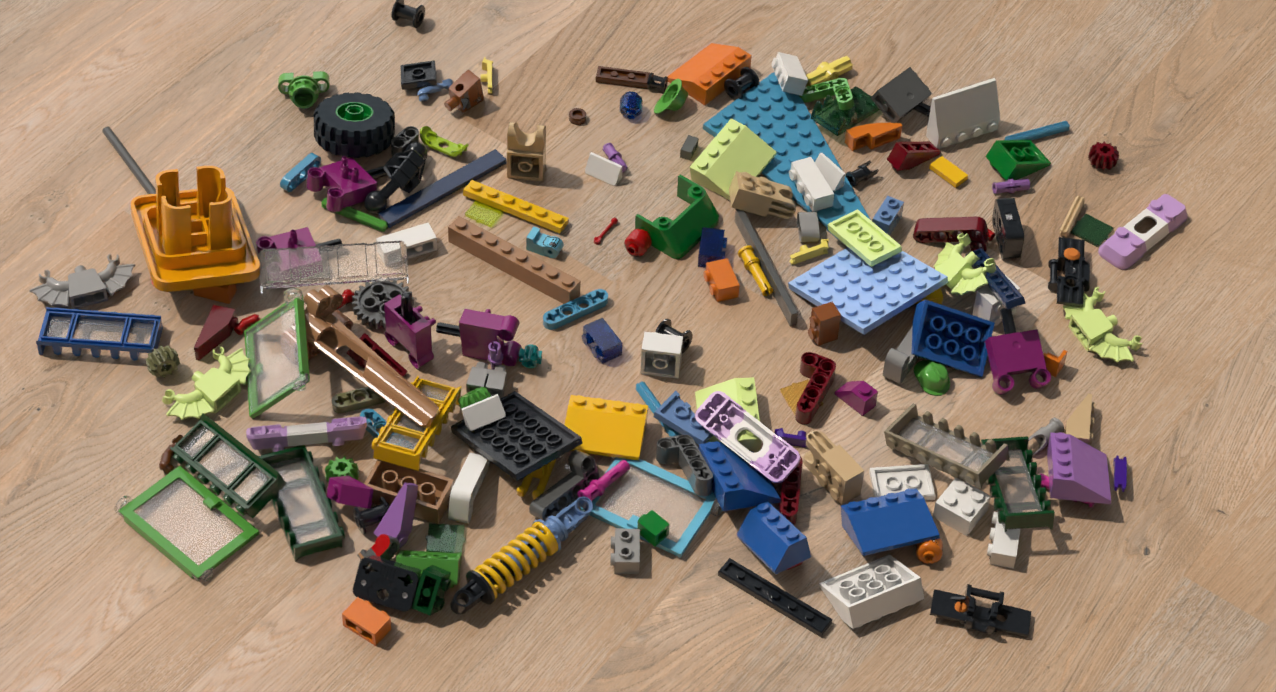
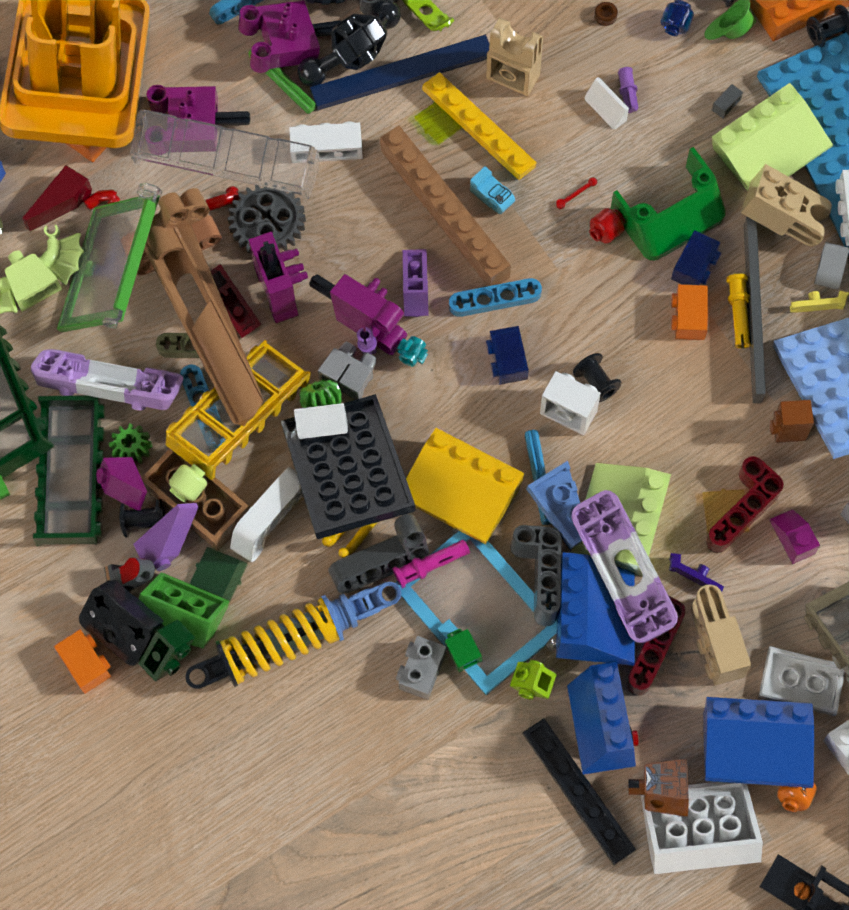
camera: 25 degrees right, 20 degrees up
(402, 472) = (187, 482): none -> yellowish green head
(509, 305) = (415, 283): none -> medium lavender slope
(711, 533) = (533, 680): none -> lime brick
(835, 571) = (663, 787): none -> dark orange torso

